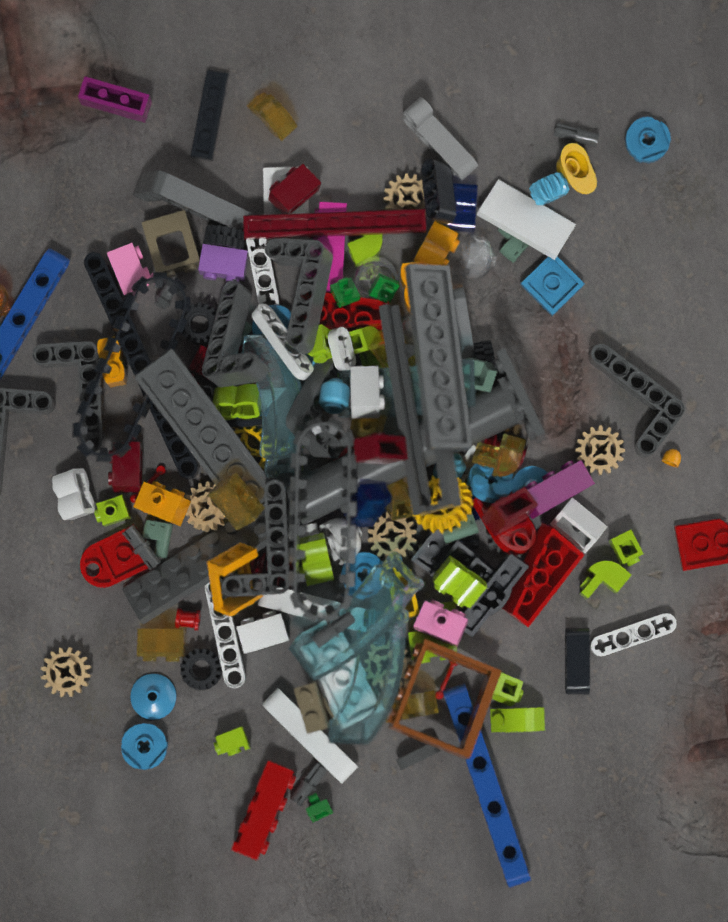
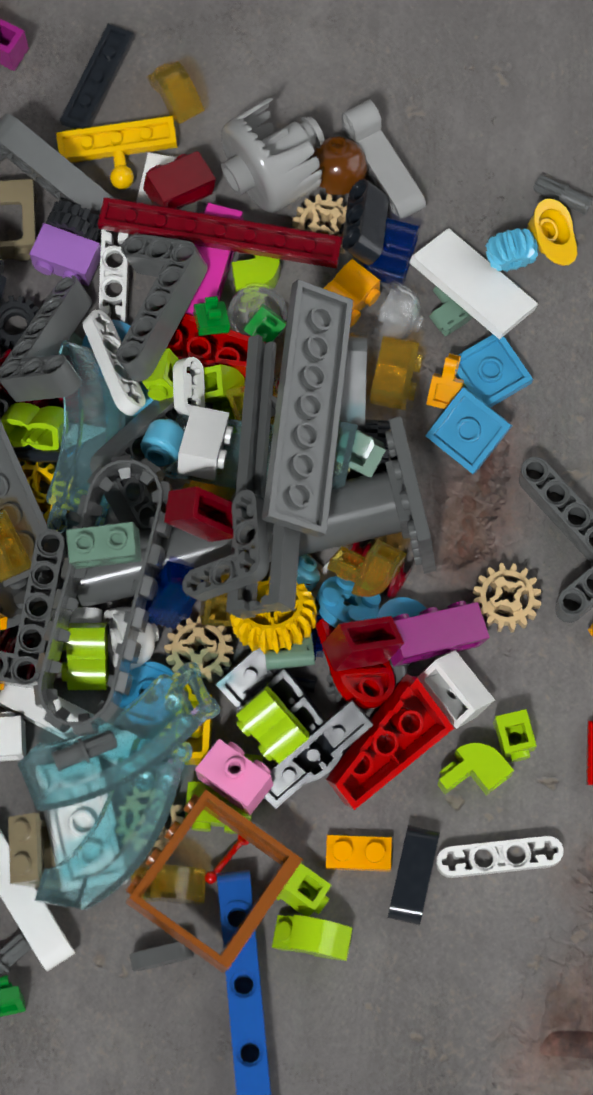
camera: 15 degrees right, 10 degrees down
(237, 164) = (116, 142): none -> yellow plate
(319, 490) = (104, 545): none -> sand green brick
(359, 162) = (274, 166): none -> light grey piece
(406, 150) = (341, 164): none -> reddish brown cylinder
(416, 478) = (240, 561): none -> dark grey beam
(485, 301) = (395, 372): none -> clear yellow brick
(523, 305) = (445, 386): none -> light orange plate
(535, 654) = (358, 853): none -> light orange plate
(547, 333) = (468, 430): none -> dark azure plate

